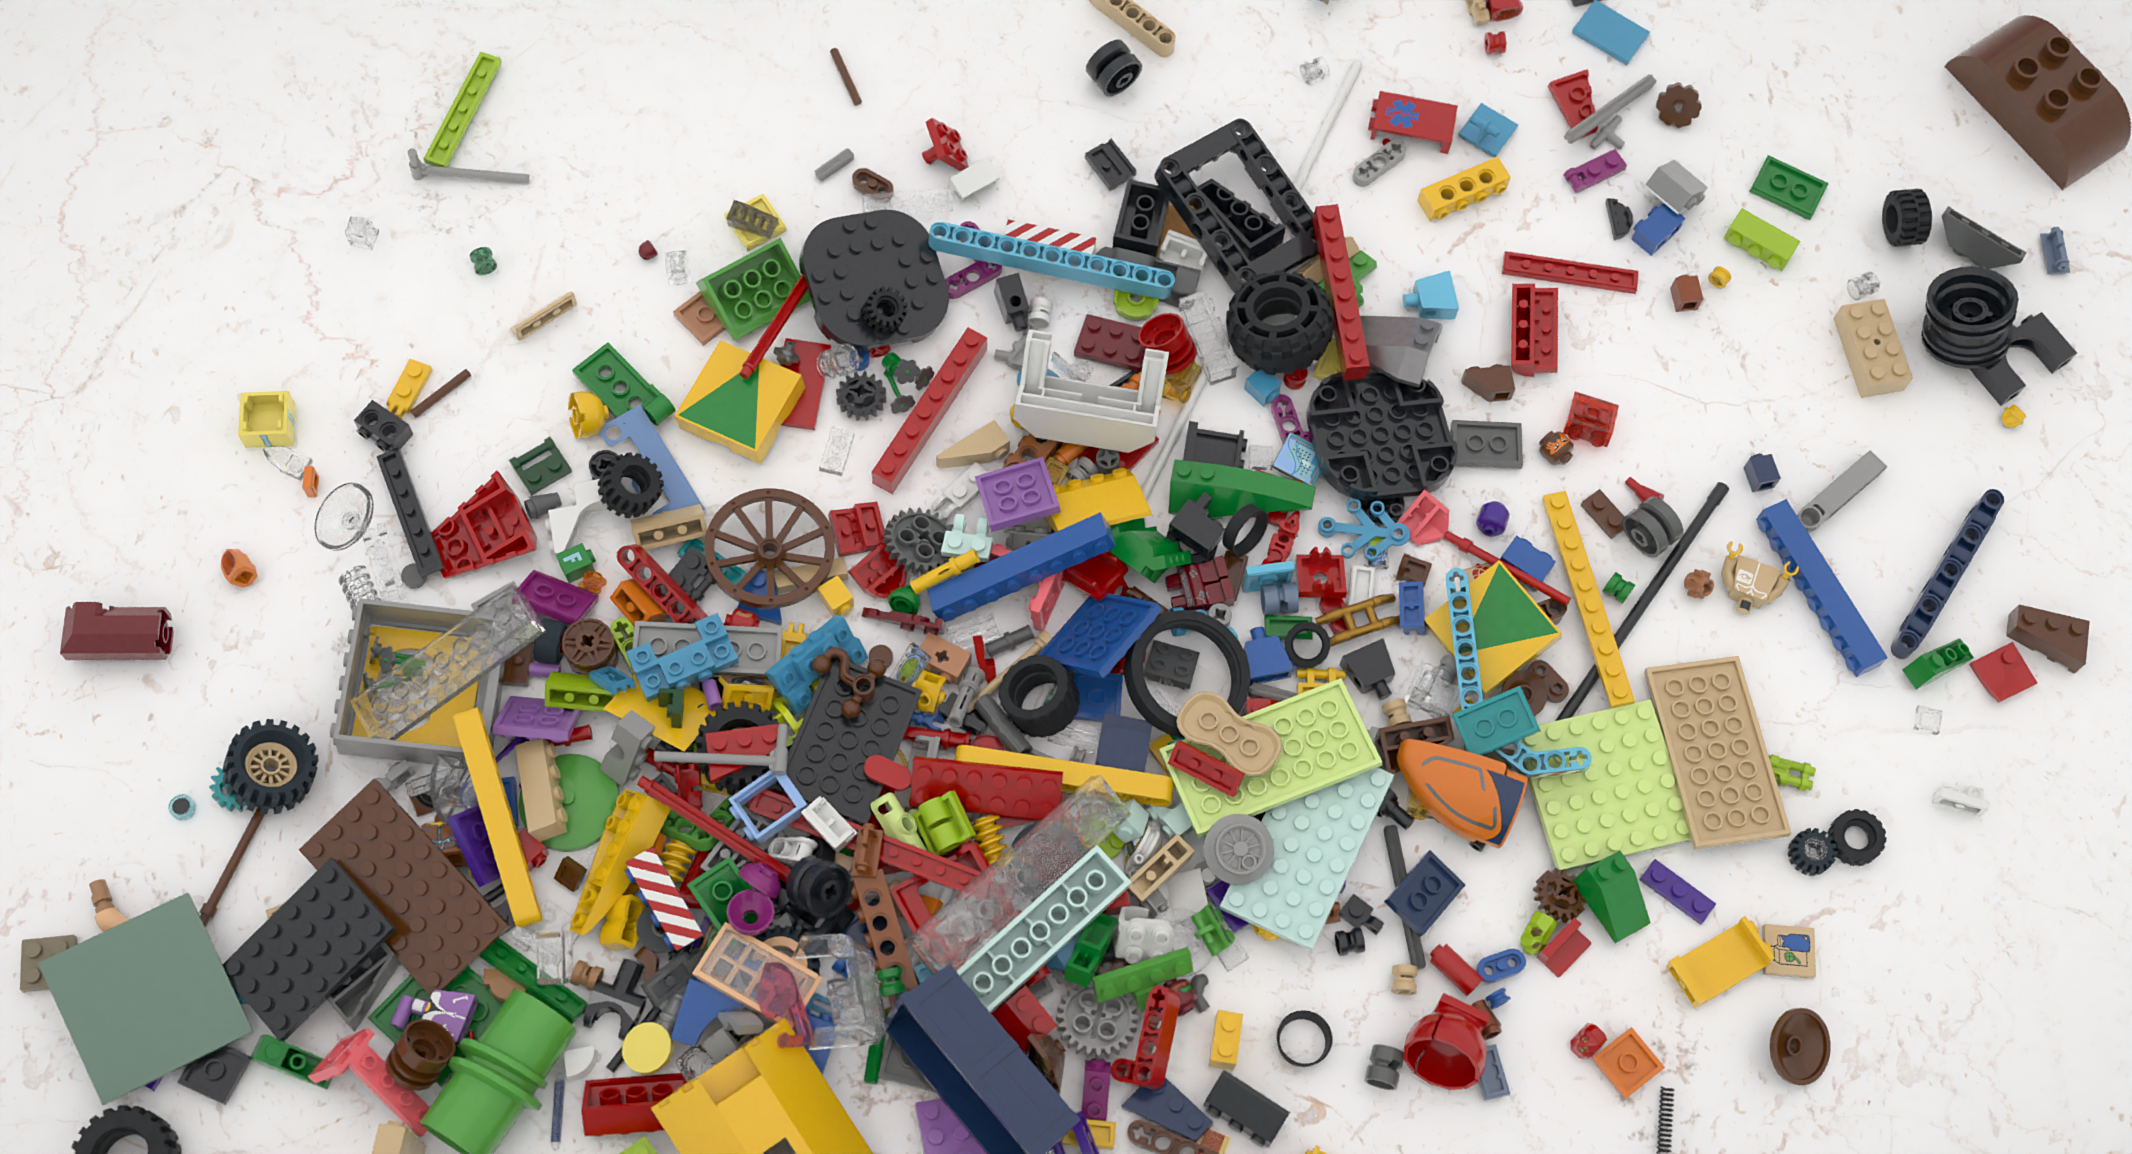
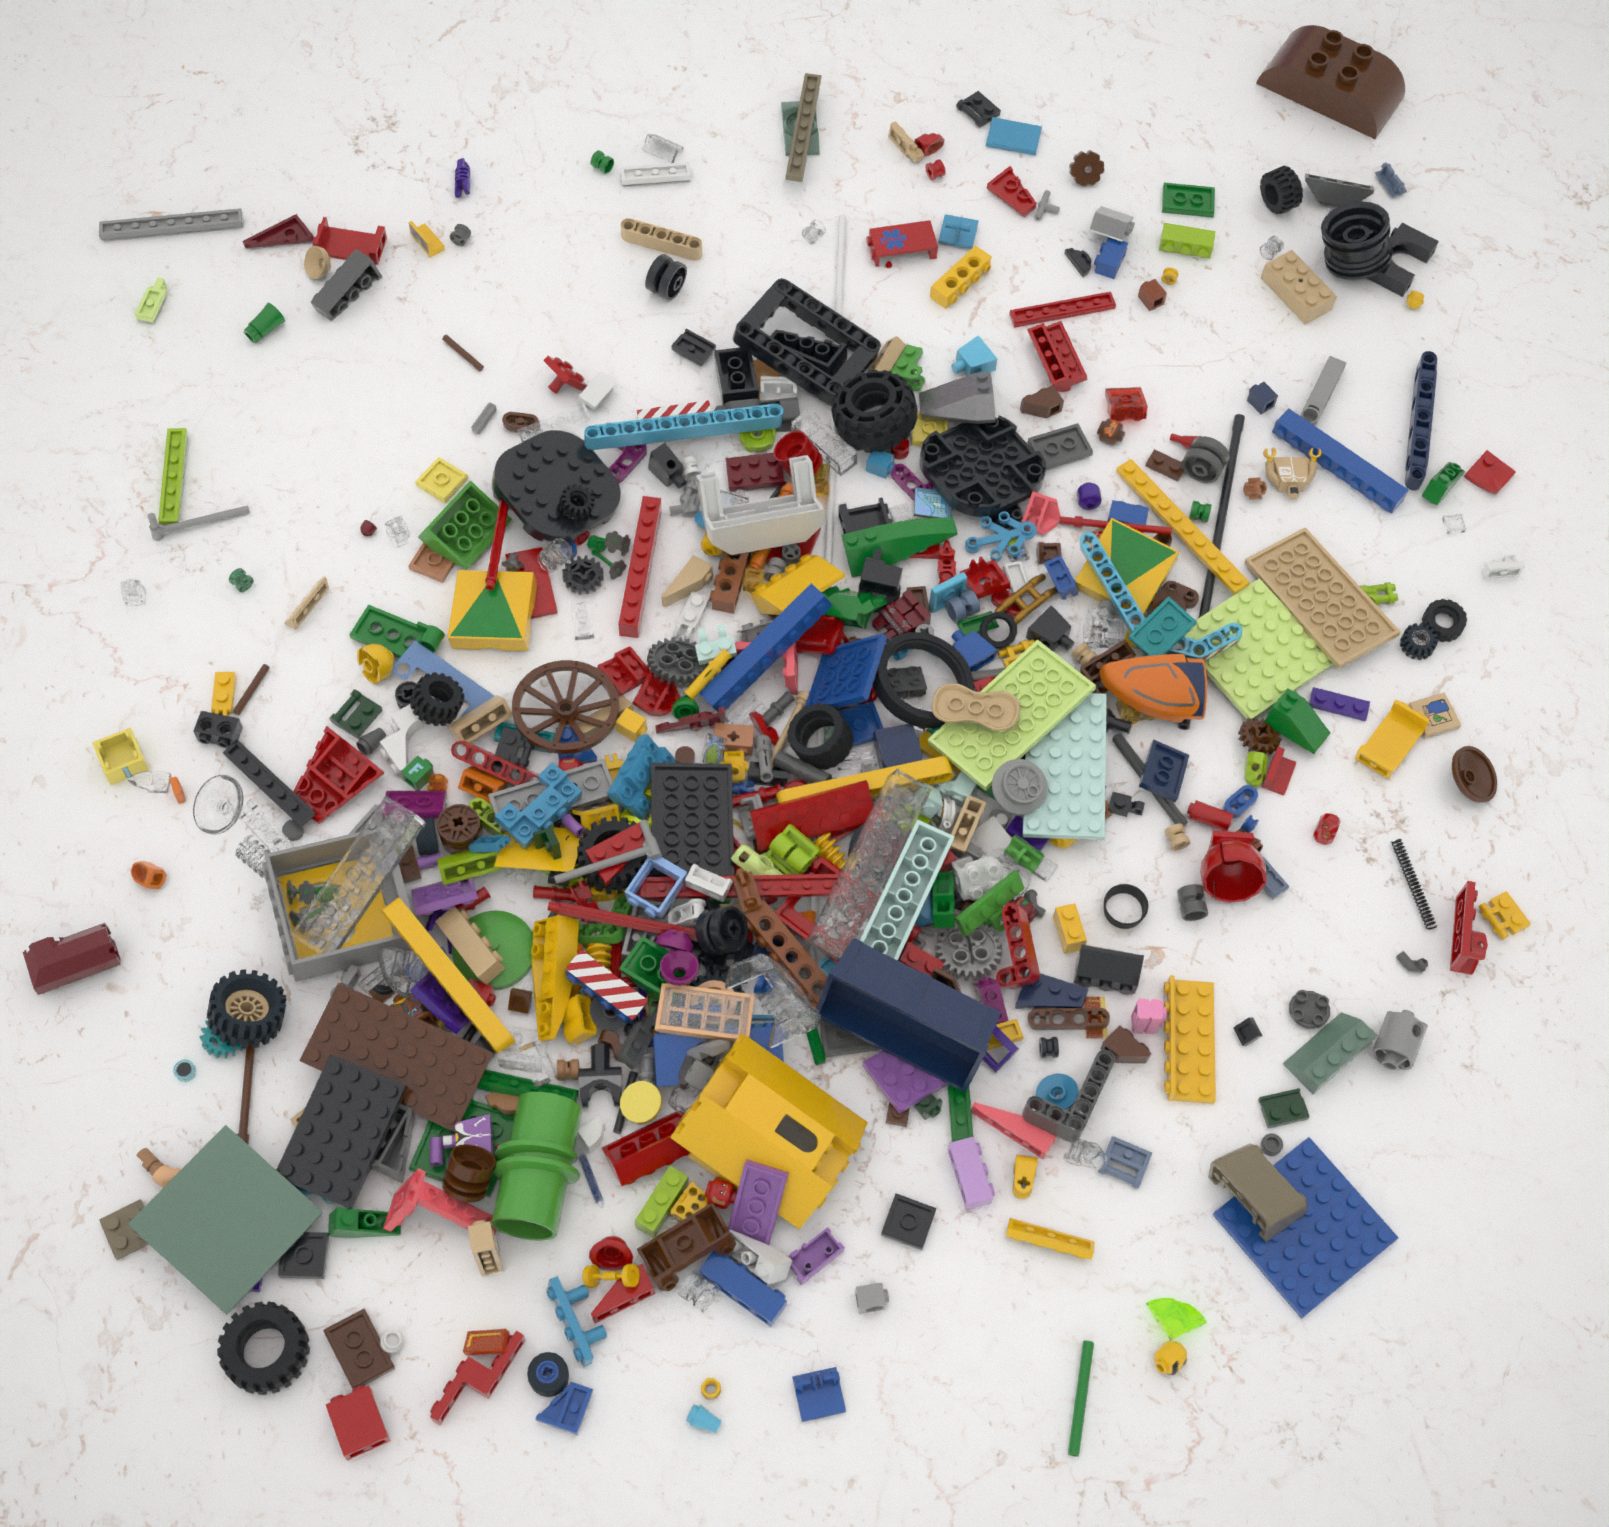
camera: 20 degrees left, 5 degrees down
(633, 738) = (528, 875): light grey arch -> none
(747, 210) = (439, 483): clear smoke slope -> none
(780, 993) = (731, 1013): clear pink piece -> none
(876, 668) = (691, 759): reddish brown piece -> none
(887, 773) = (733, 831): red tile -> none
(892, 987) = (808, 983): green wheel -> none
(1017, 494) = (738, 598): medium lavender plate -> none
(1206, 768) = (970, 737): red plate -> none
(1235, 525) = (909, 565): black tyre -> none
(1341, 292) = (901, 362): red brick -> none
(1349, 941) = (1126, 825): black wheel -> none
(1383, 154) = (890, 287): light grey beam -> none
(1595, 170) = (1048, 233): magenta plate -> none
(1609, 109) = (1039, 187): light grey axle -> none
(1628, 1063) = (1361, 833): orange plate -> none
(2052, 634) = (1510, 434): reddish brown wedge -> none

